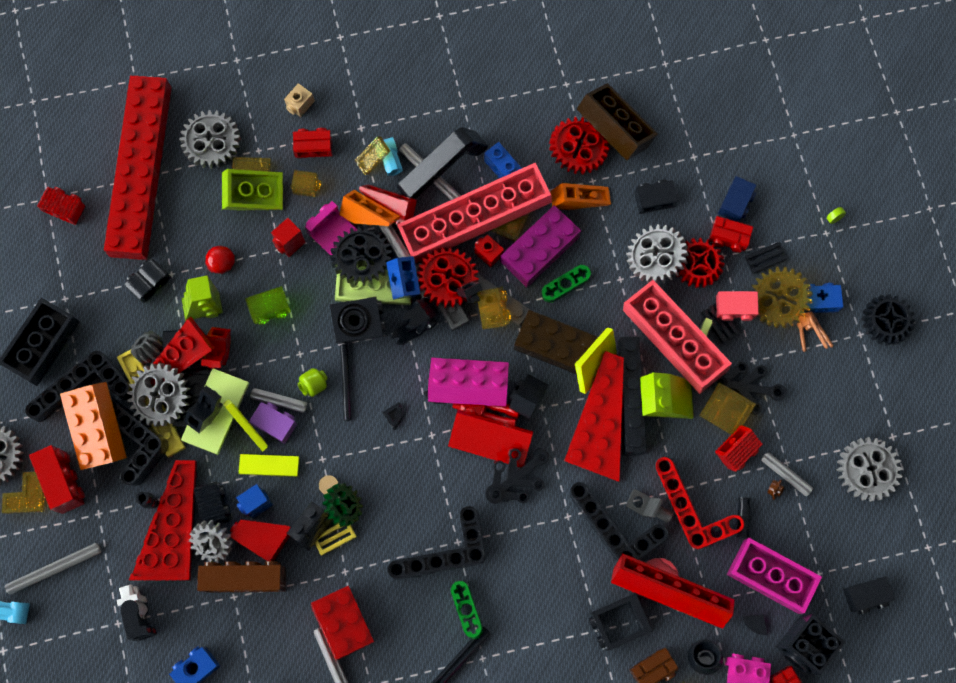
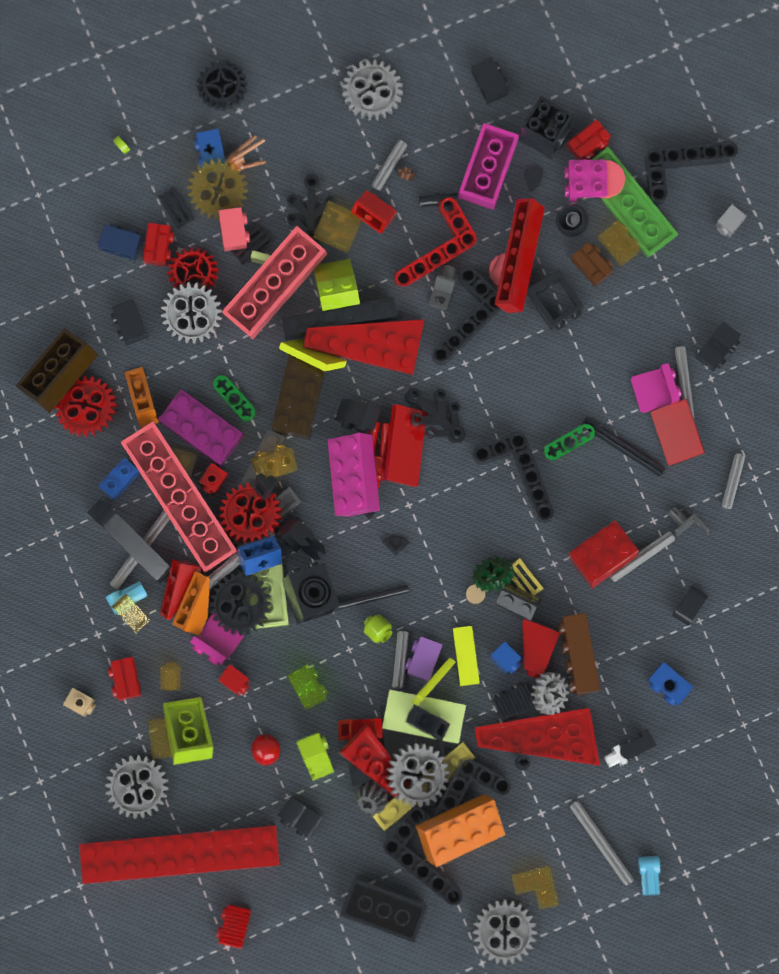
camera: 100 degrees left, 5 degrees up
(57, 479) = (517, 854): red brick -> none

